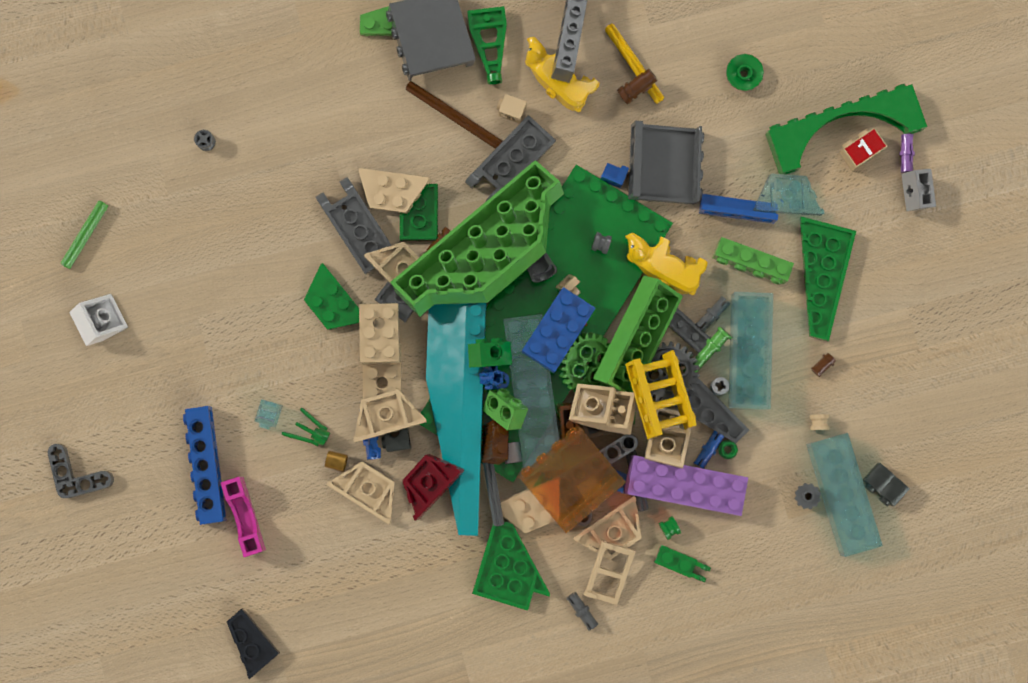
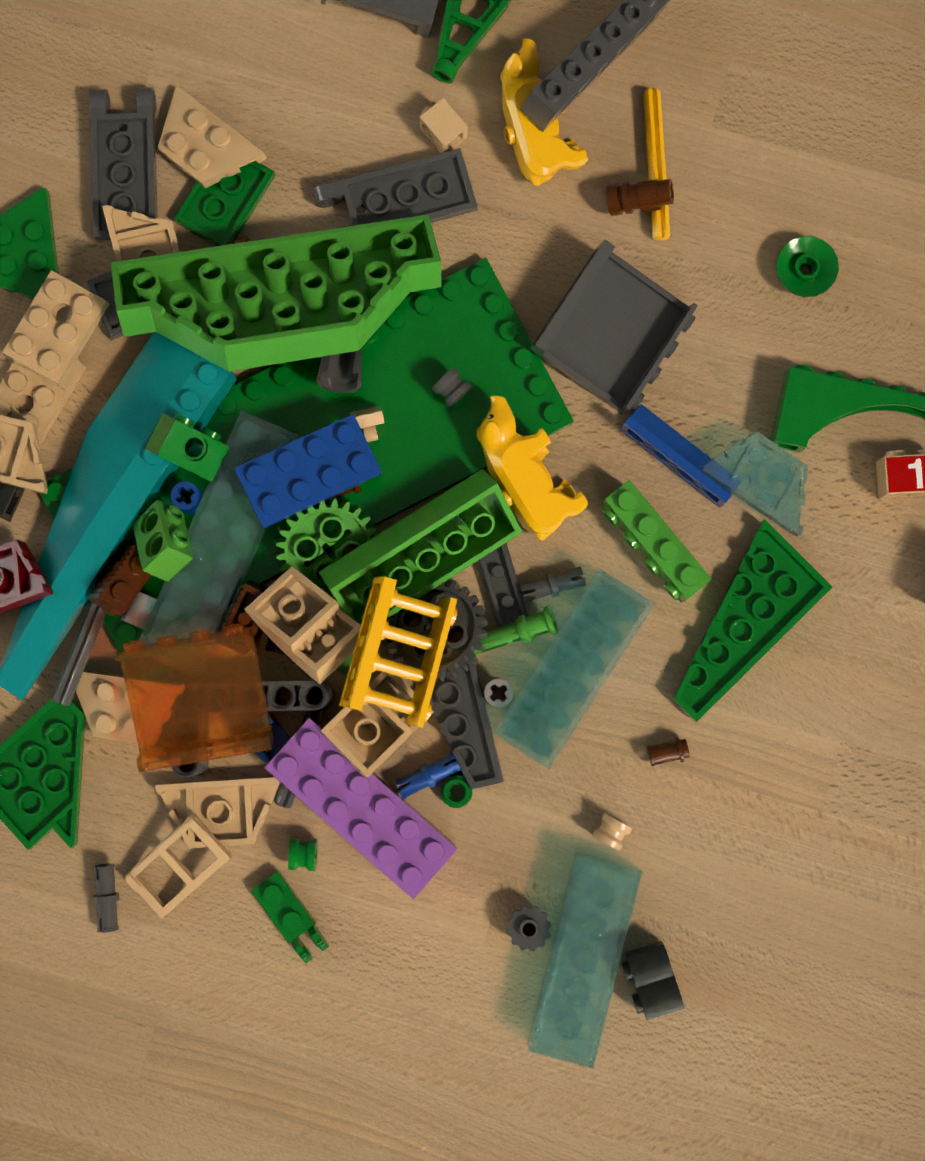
camera: 30 degrees right, 0 degrees up
(453, 114) = (355, 87): reddish brown axle -> none
(491, 377) = (167, 475): blue gear -> none
(614, 175) = (532, 305): blue panel -> none

